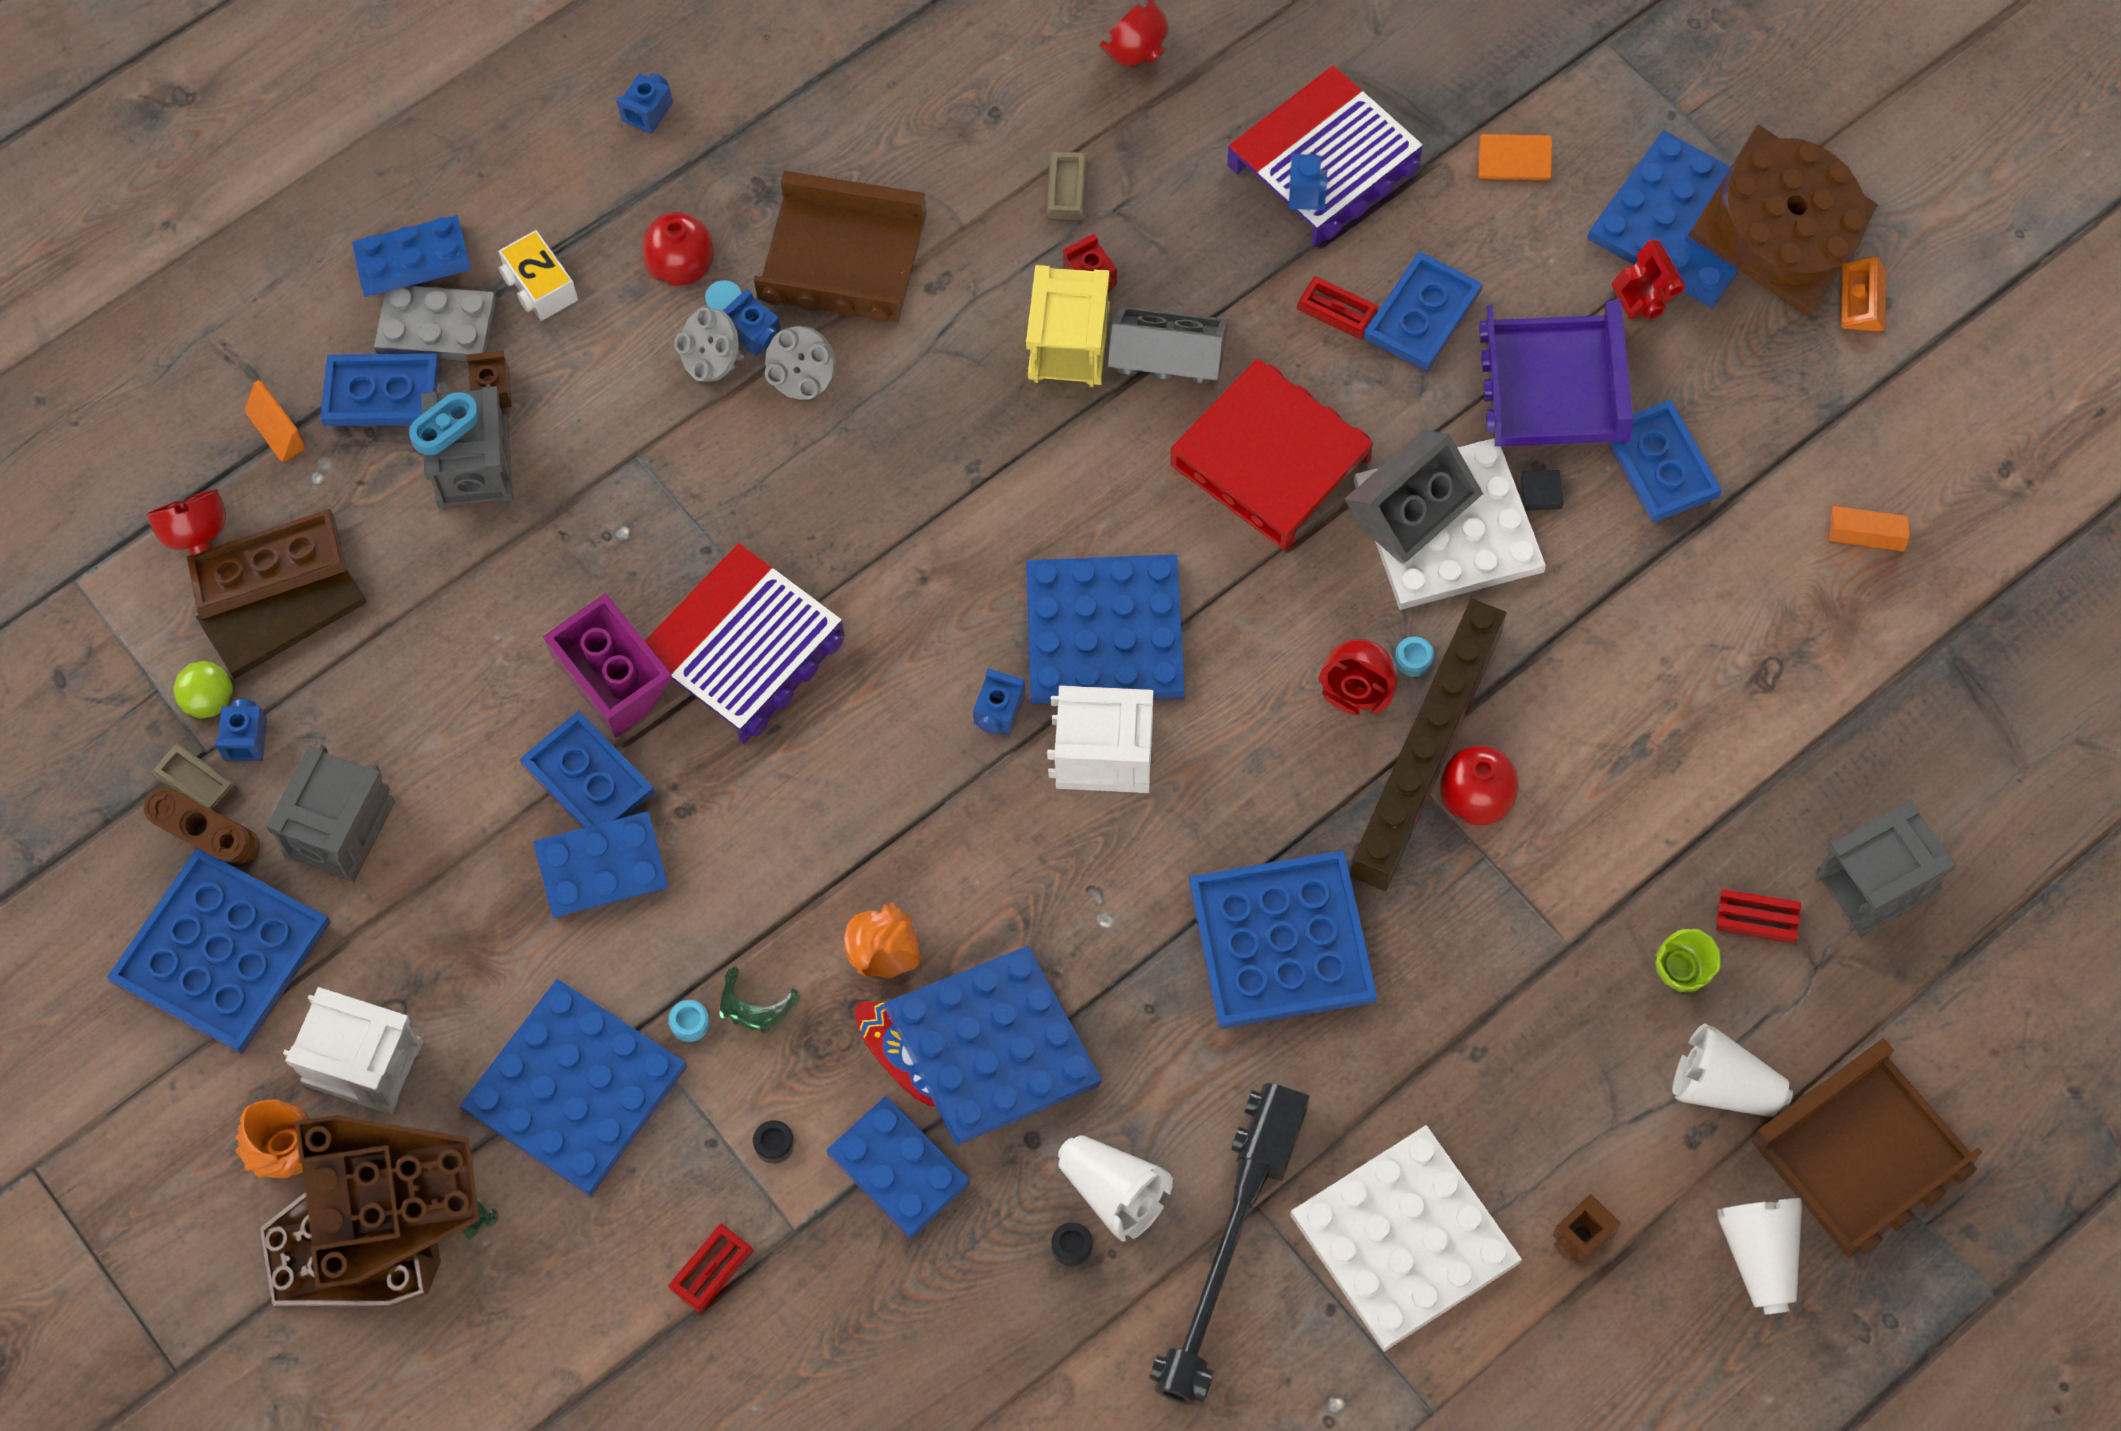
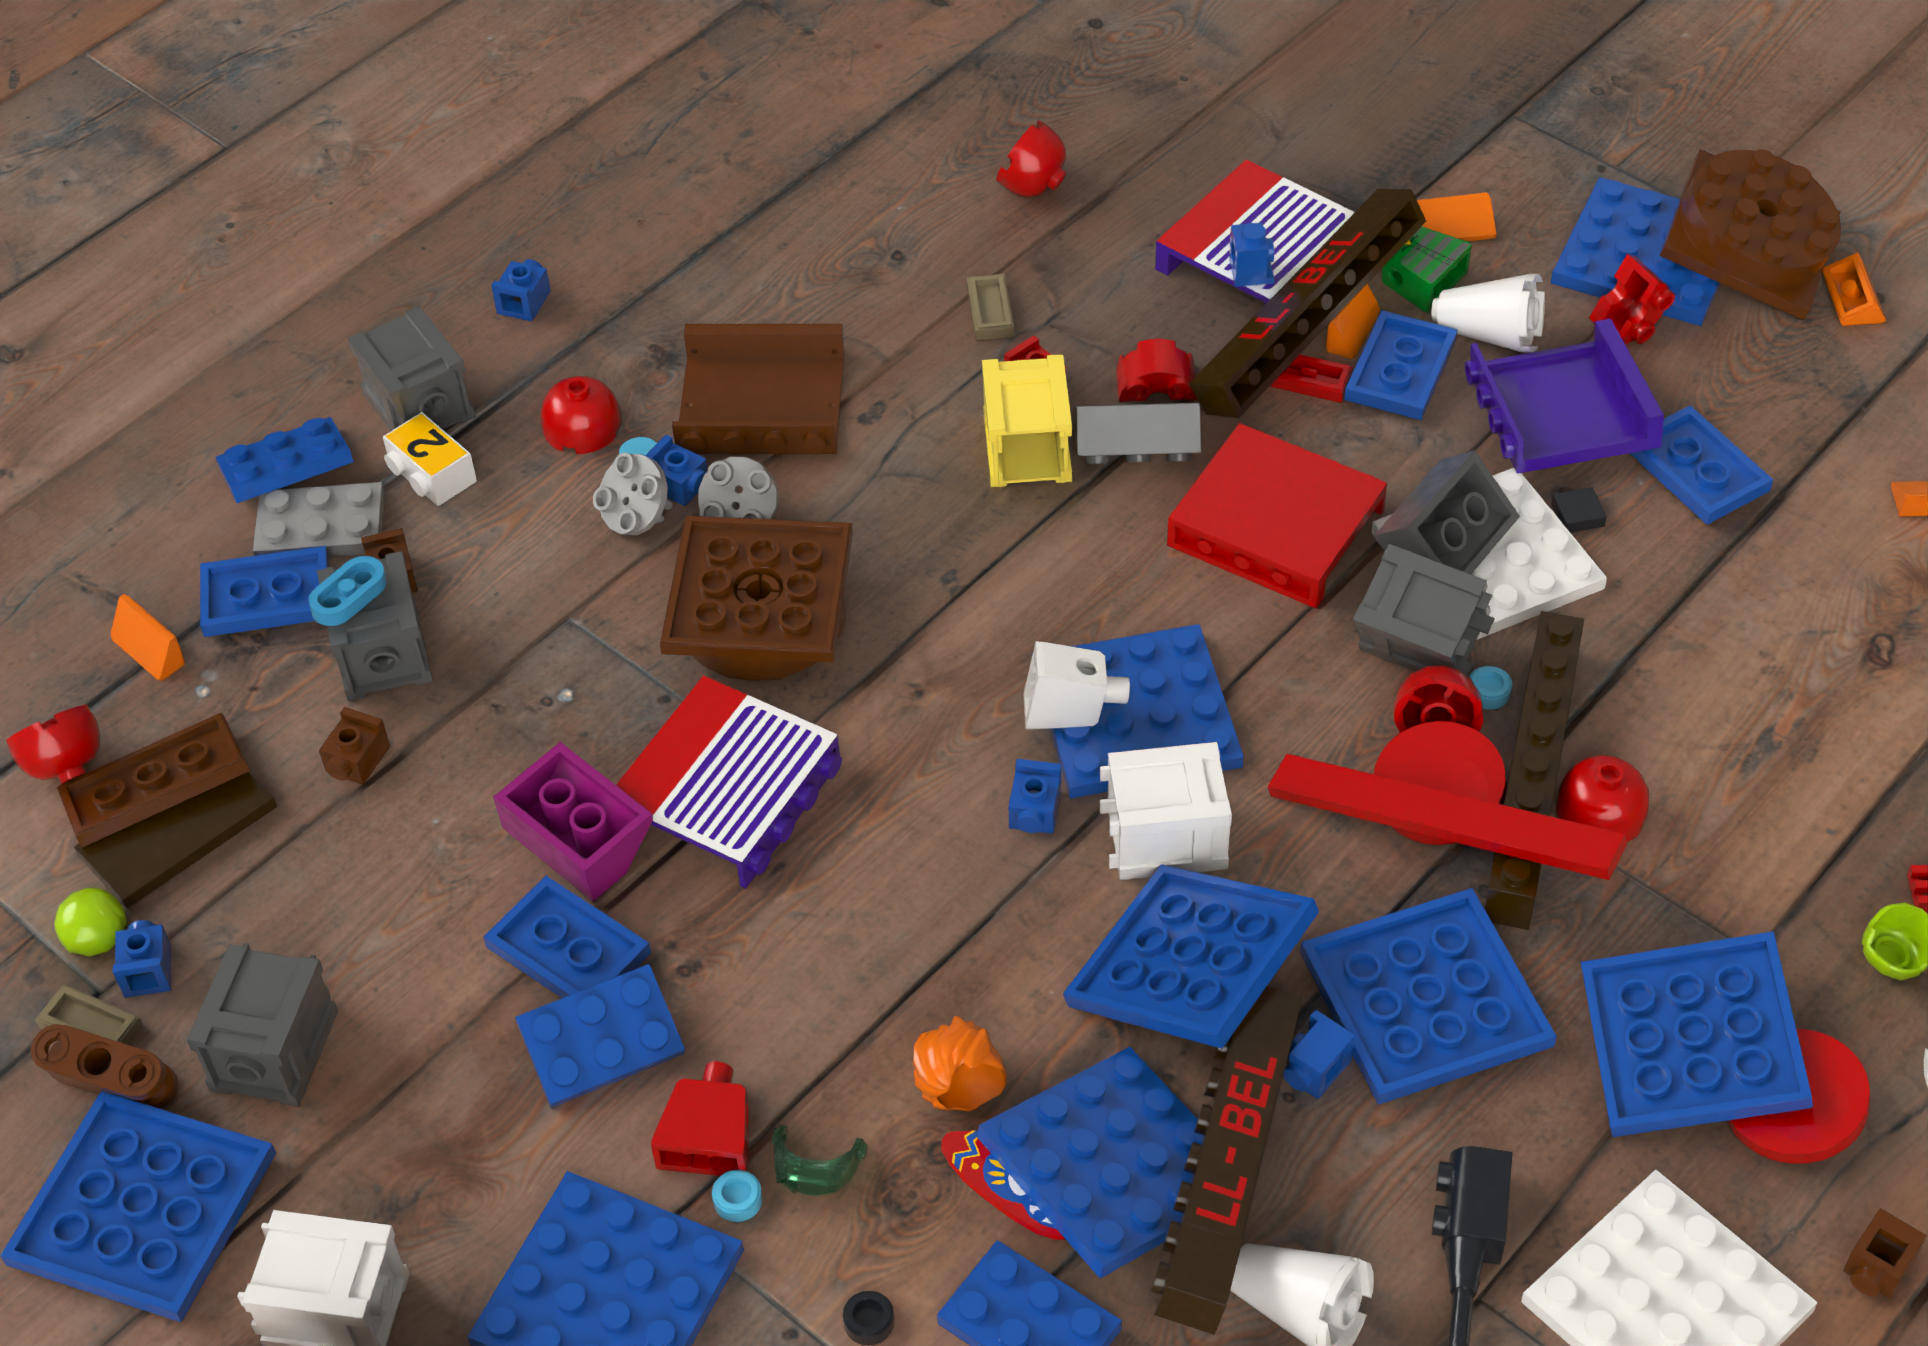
camera: 10 degrees left, 15 degrees down
(436, 571) = (354, 746): none -> reddish brown brick
(532, 187) = (412, 371): none -> dark grey container
(673, 957) = (704, 1125): none -> red torso
(793, 433) = (758, 595): none -> reddish brown piece
(1045, 610) = (1069, 687): none -> white torso
(1081, 1059) = (1225, 1165): none -> dark brown brick
(1092, 876) = (1191, 955): none -> blue plate
(1178, 980) = (1319, 1055): none -> blue brick
(1201, 282) = (1155, 368): none -> red cylinder
(1335, 785) = (1449, 816): none -> red tile
(1342, 746) = (1446, 759): none -> red piece
(1351, 237) = (1307, 303): none -> dark brown brick
(1366, 587) = (1422, 612): none -> dark grey container
(1392, 254) = (1352, 324): none -> orange slope
(1470, 204) = (1427, 267): none -> green torso
(1489, 1015) = (1695, 1035): none -> blue plate
(1521, 272) = (1495, 311): none -> white cone
(1557, 1082) = (1838, 1112): none -> red piece

